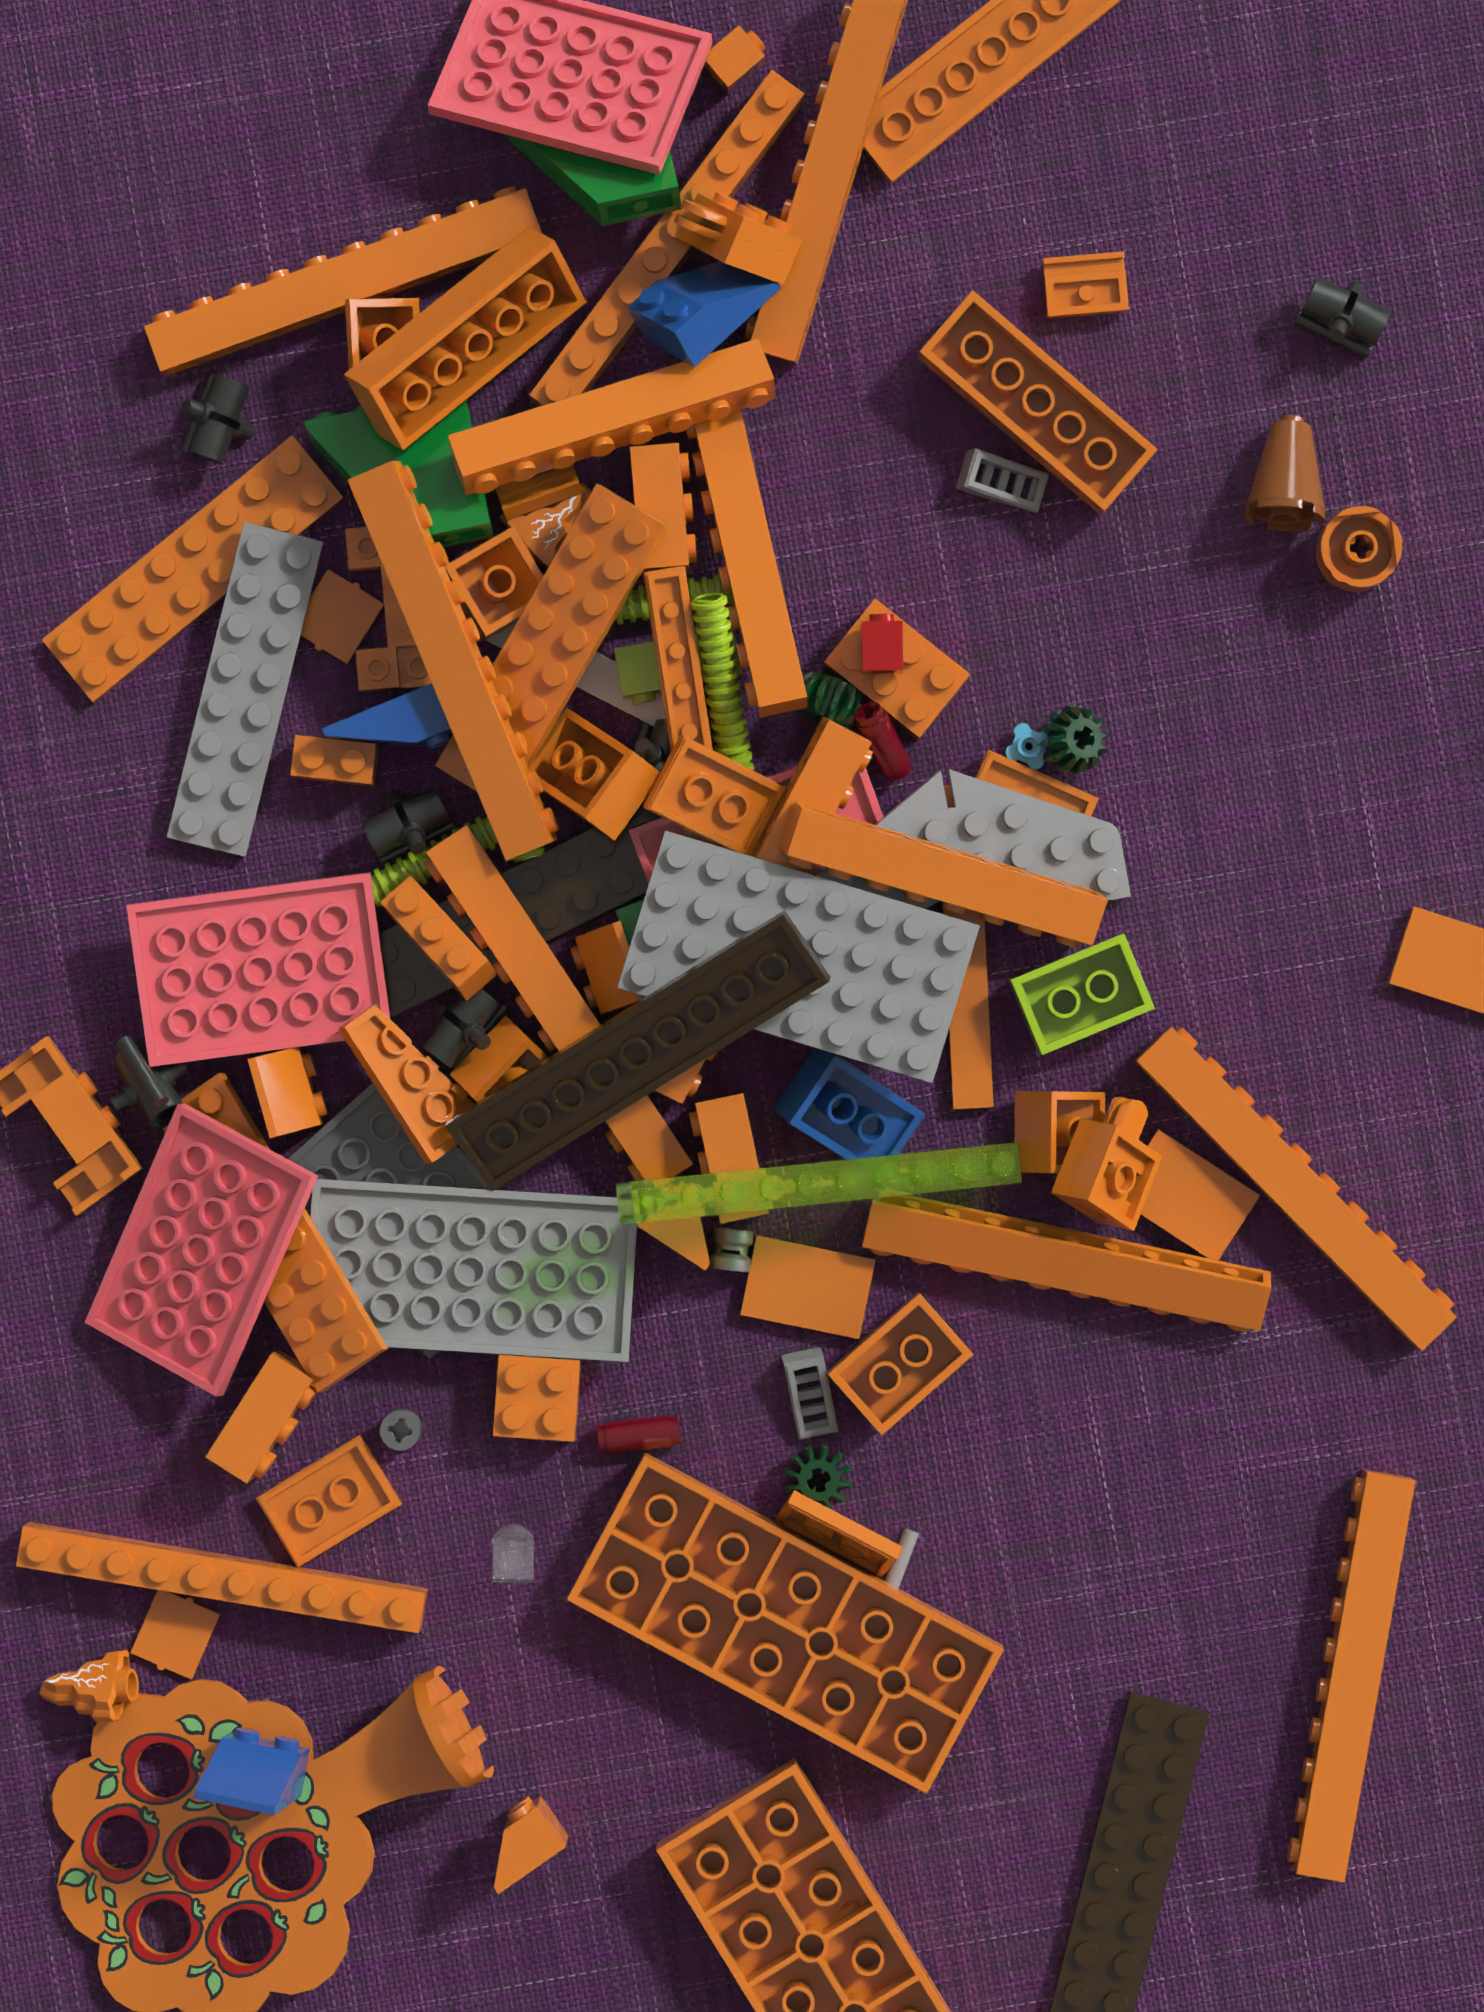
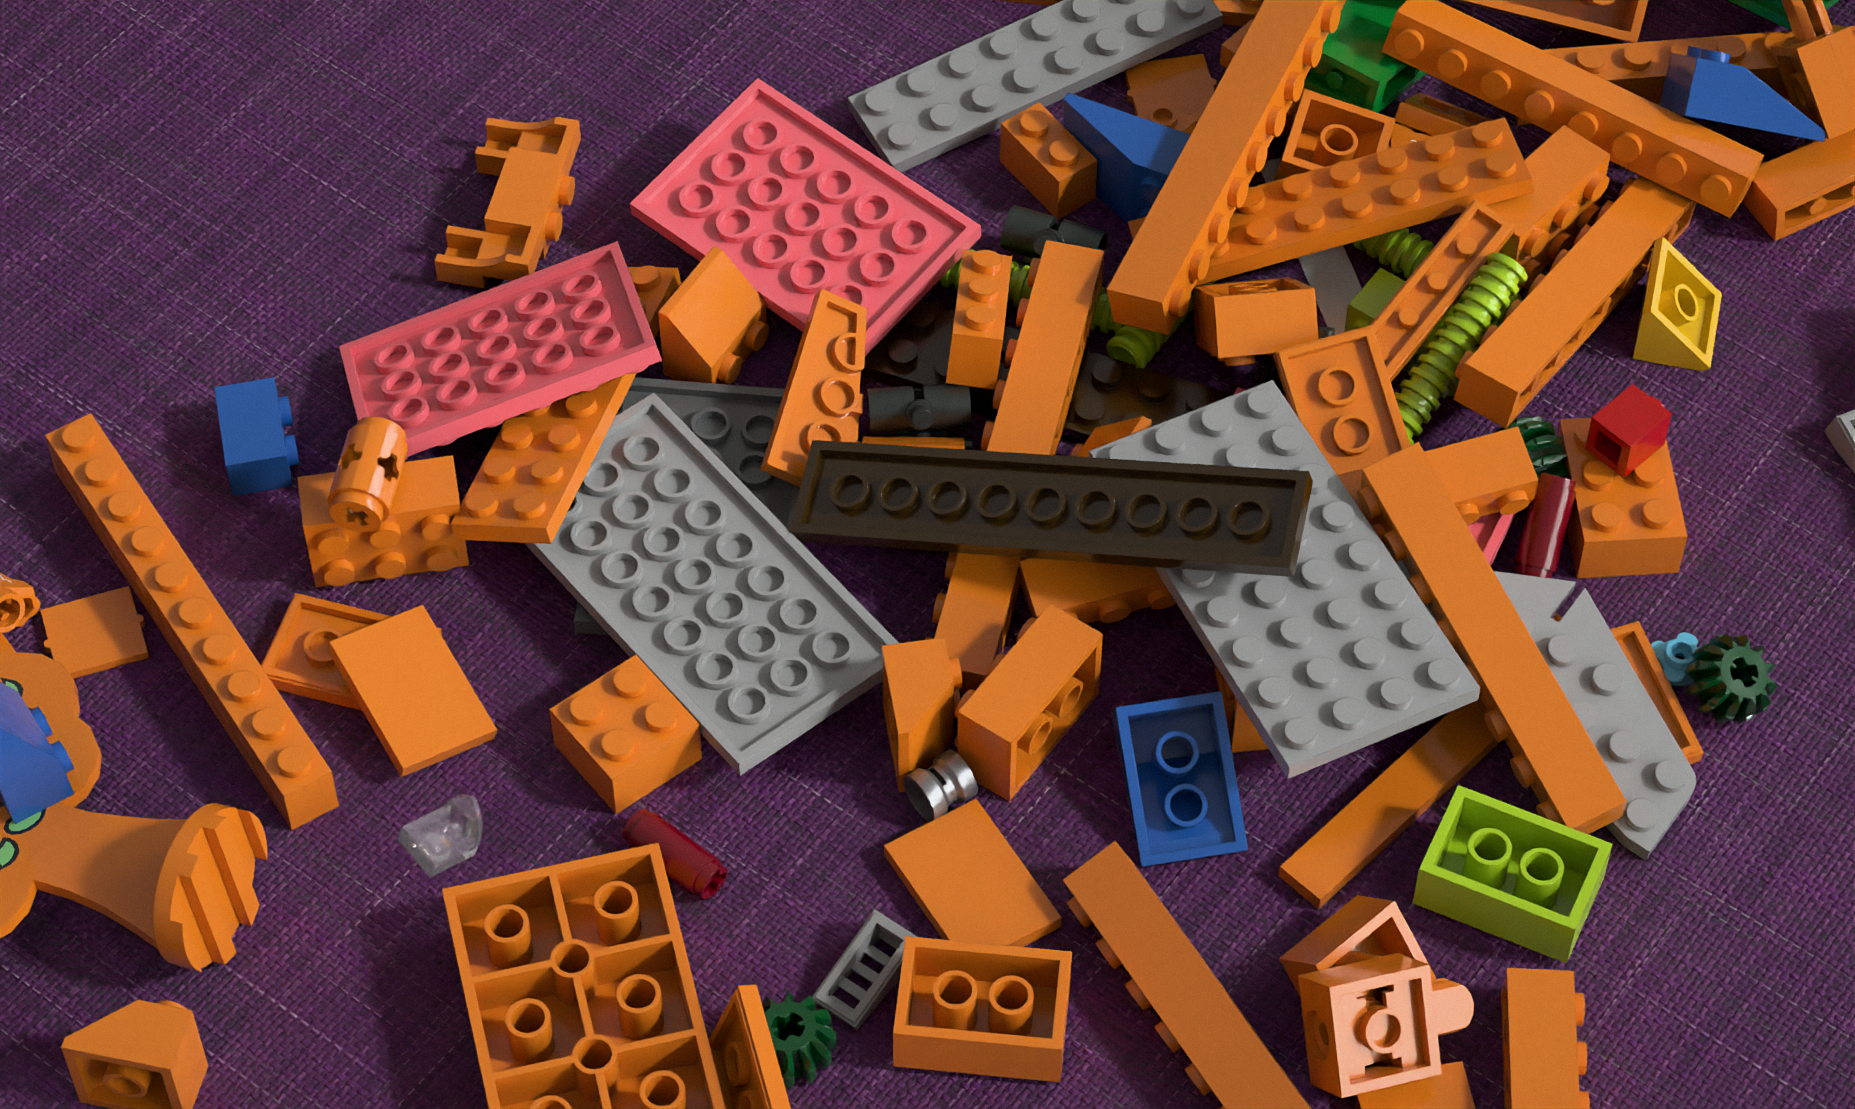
camera: 50 degrees right, 35 degrees down
(114, 1430) = (254, 436): none -> blue brick
(146, 1086) = (613, 220): pearl dark grey pin -> none
(265, 1440) = (367, 474): none -> orange piece
(395, 1492) = (412, 690): none -> orange tile
(402, 1422) = (481, 669): flat silver wheel -> none
(802, 491) = (1676, 312): none -> yellow slope
(818, 1183) = (1089, 759): clear neon green brick -> none

